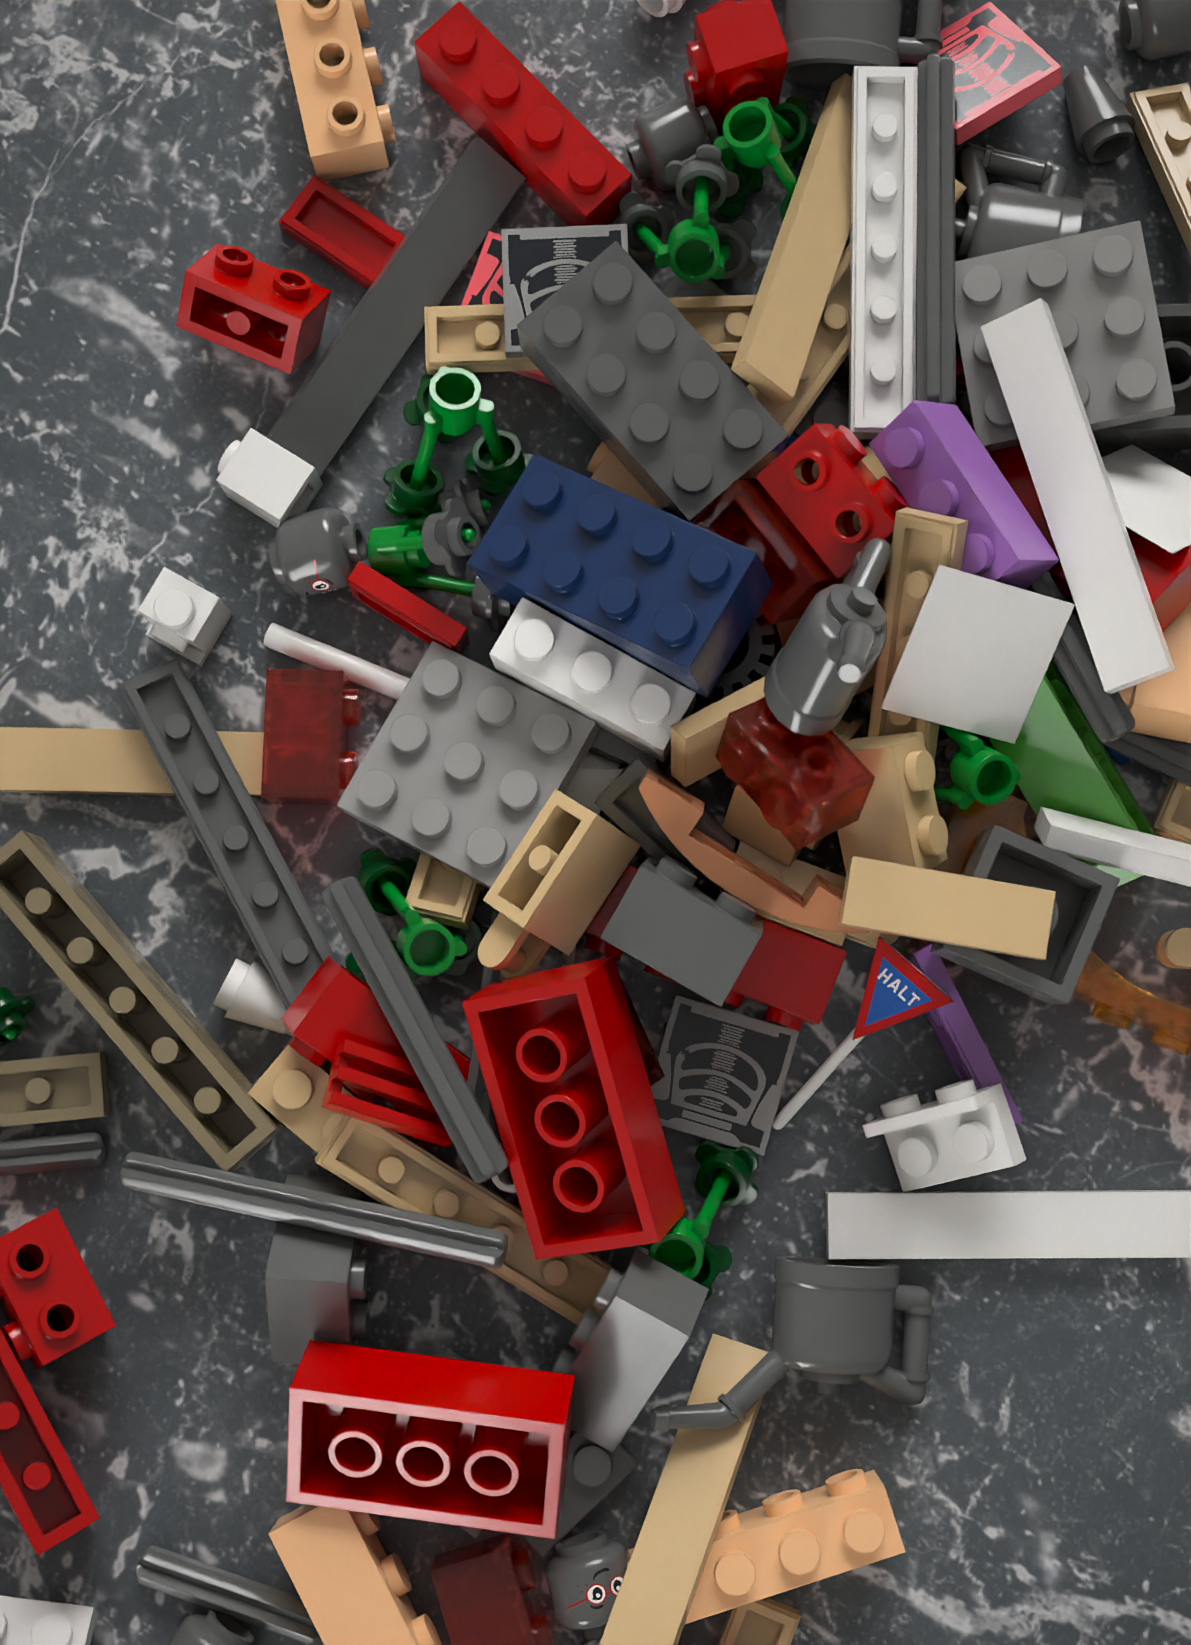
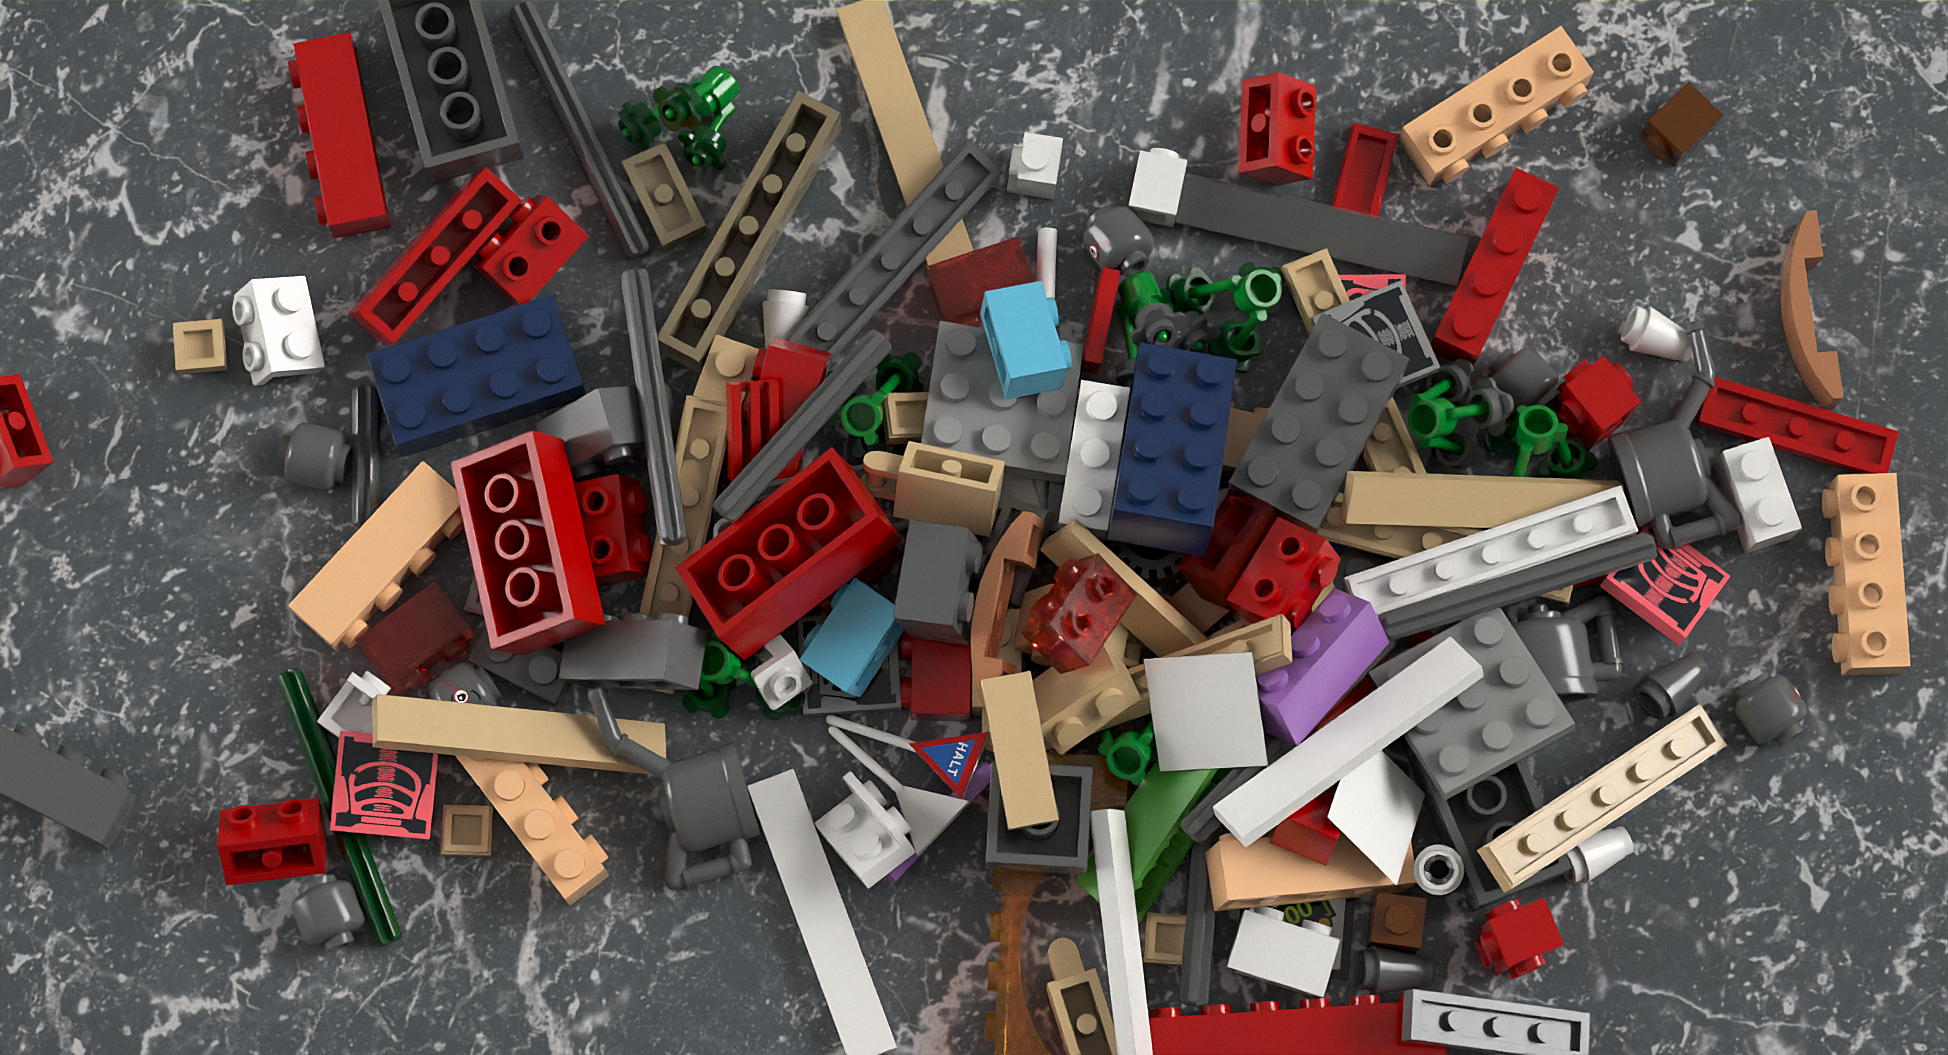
camera: 65 degrees right, 5 degrees down
(180, 1419) = (476, 376): none -> dark blue brick
(405, 706) = (1025, 339): none -> medium azure brick
(444, 1312) = (615, 528): none -> red brick
(702, 1061) = (853, 637): none -> medium azure brick
(716, 1168) = (780, 674): none -> white bracket
(831, 648) = (1168, 604): dark grey piece -> none
(949, 1053) = (924, 811): none -> white piece

